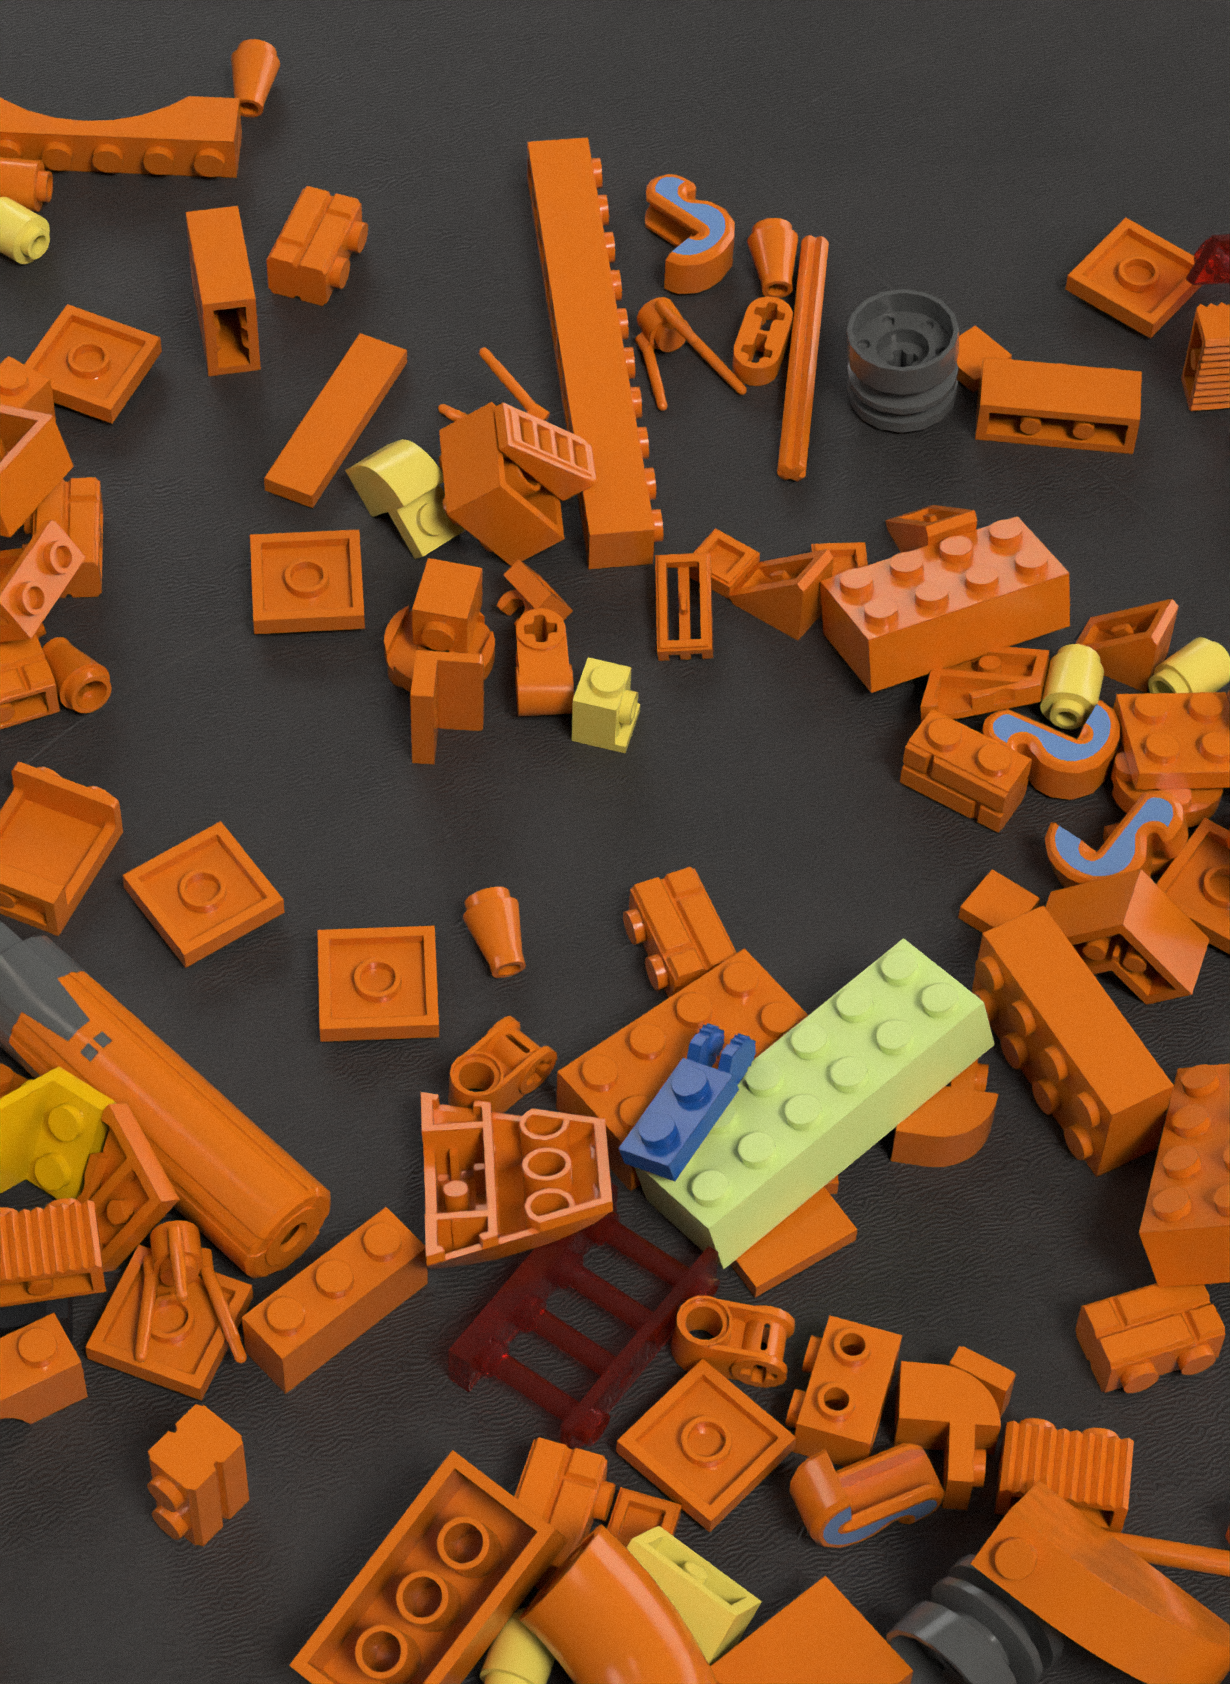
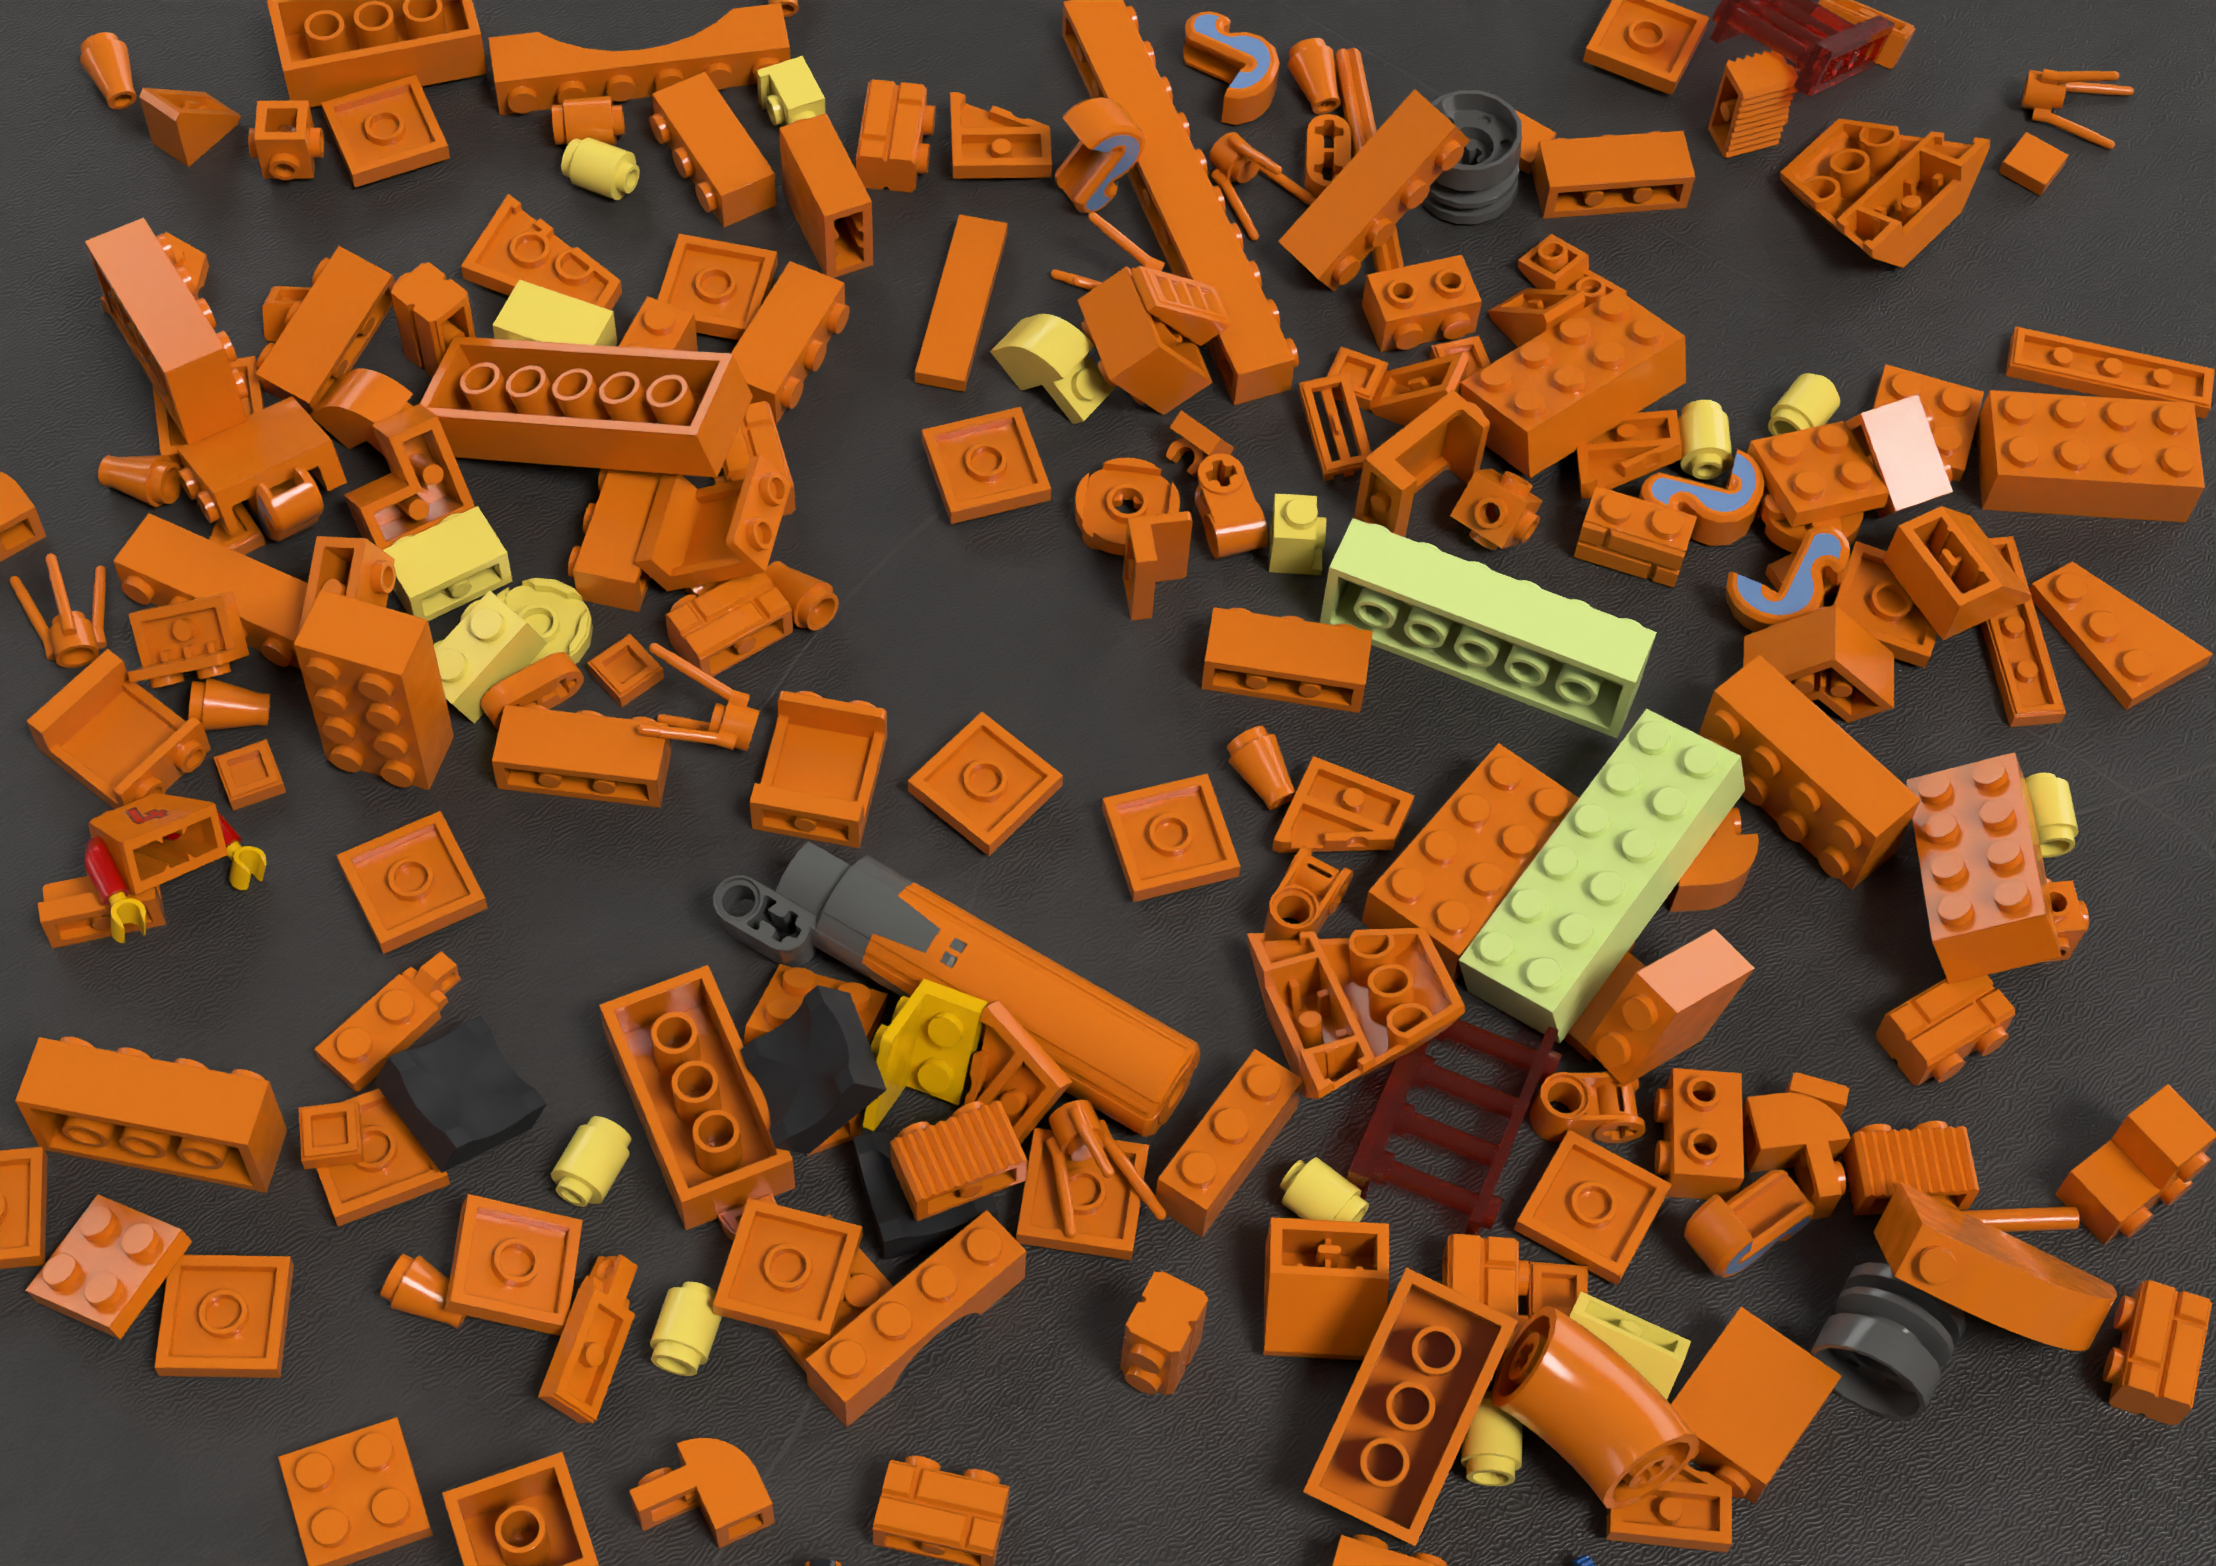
camera: 15 degrees left, 5 degrees up
(128, 230) = (713, 150): none -> orange brick
(141, 424) = (790, 335): none -> orange brick
(225, 183) = (789, 92): none -> light yellow brick
(380, 1458) = (1324, 1287): none -> orange slope
(419, 1377) = (1321, 1193): none -> light yellow brick
(420, 271) = (997, 143): none -> orange wing
(447, 606) = (1131, 467): orange brick -> none
(521, 290) = (1106, 151): none -> orange animal
(555, 828) = (1287, 659): none -> orange brick
(566, 992) = (1342, 812): none -> orange wing
(676, 929) = (1428, 739): orange brick -> none
(688, 1103) = (1501, 902): blue hinge -> none
(748, 650) = (1441, 438): none -> orange panel
(769, 829) = (1487, 627): none -> yellowish green brick
(786, 375) = (1375, 191): none -> orange brick
(812, 499) = (1421, 303): none -> orange brick
(825, 716) = (1498, 509): none -> orange brick
(838, 1249) = (1668, 1007): none -> orange brick
(976, 487) = (1564, 267): none -> orange slope
(996, 902) = (1697, 658): orange tile -> none
(1132, 641) = (1742, 386): orange slope -> none

